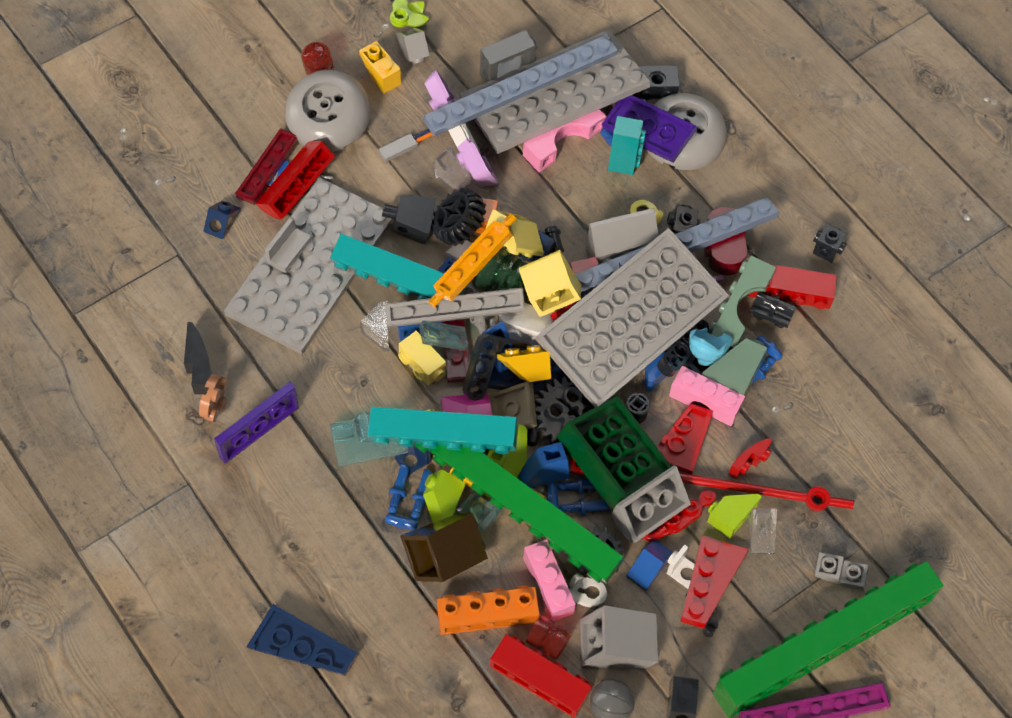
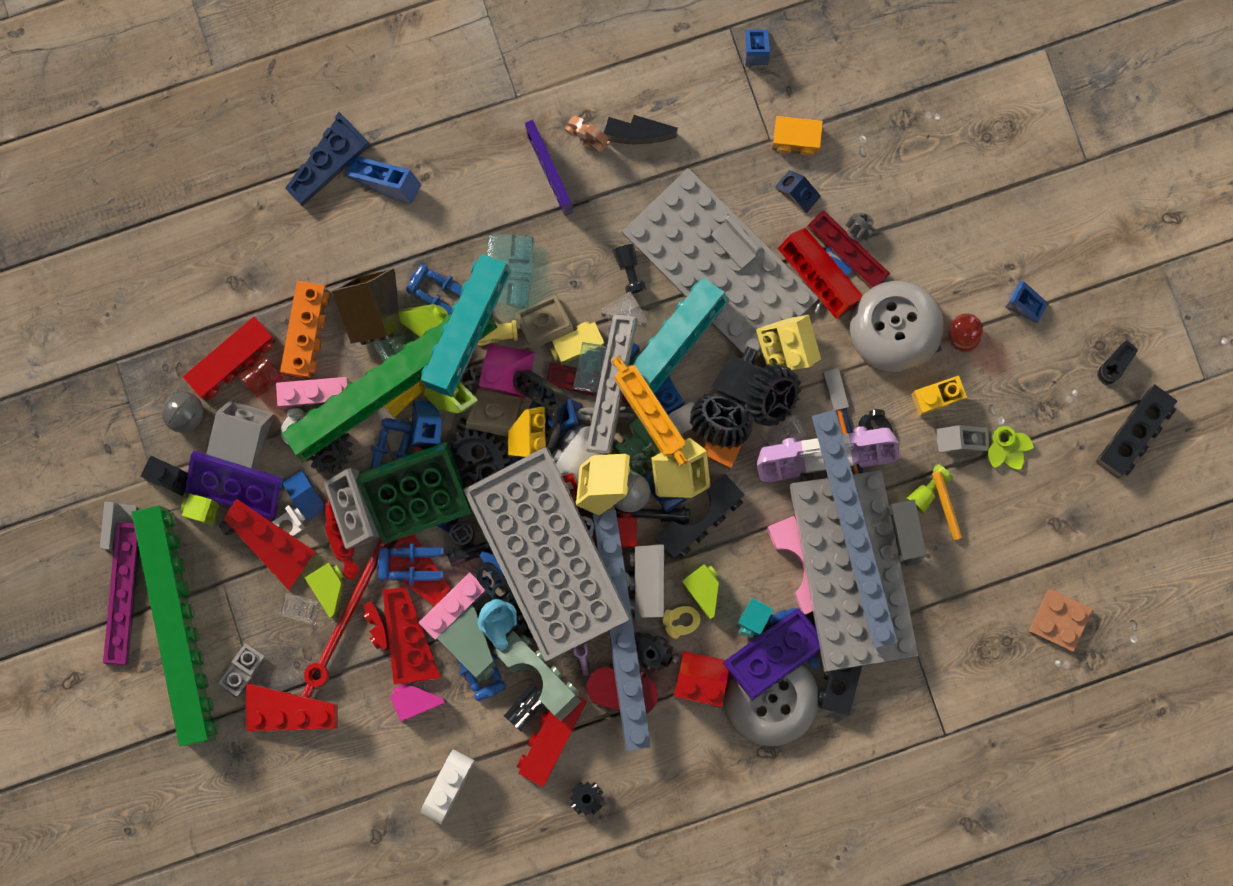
camera: 115 degrees right, 20 degrees up
(88, 281) = (757, 47): none -> blue slope
(168, 228) = (797, 135): none -> light orange brick
(244, 158) = (860, 227): none -> dark grey gear
(276, 28) = (1026, 302): none -> blue slope
(307, 579) = (385, 178): none -> blue slope
(329, 337) = (627, 260): none -> black piece
(370, 184) = (789, 343): none -> light yellow slope
(411, 388) = (543, 322): none -> dark tan plate
(415, 107) = (875, 415): none -> black piece
(421, 182) = (772, 394): none -> black gear
(469, 60) = (924, 494): none -> lime piece
(472, 41) = (947, 505): none -> light orange bar
(534, 207) = (723, 497): none -> black arch
(612, 199) = (703, 588): none -> lime slope
(656, 404) = (460, 556): none -> black pin
(666, 634) = (229, 481): none -> dark purple tile
(693, 176) = (701, 679): none -> red slope
(693, 436) = (383, 564): none -> blue piece
(704, 652) = (200, 509): none -> lime slope
(764, 421) = (407, 643): none -> red wing
(806, 405) = (413, 701): none -> dark pink slope
(865, 519) = (278, 710): none -> red wing
(870, 353) = (447, 786): none -> white brick

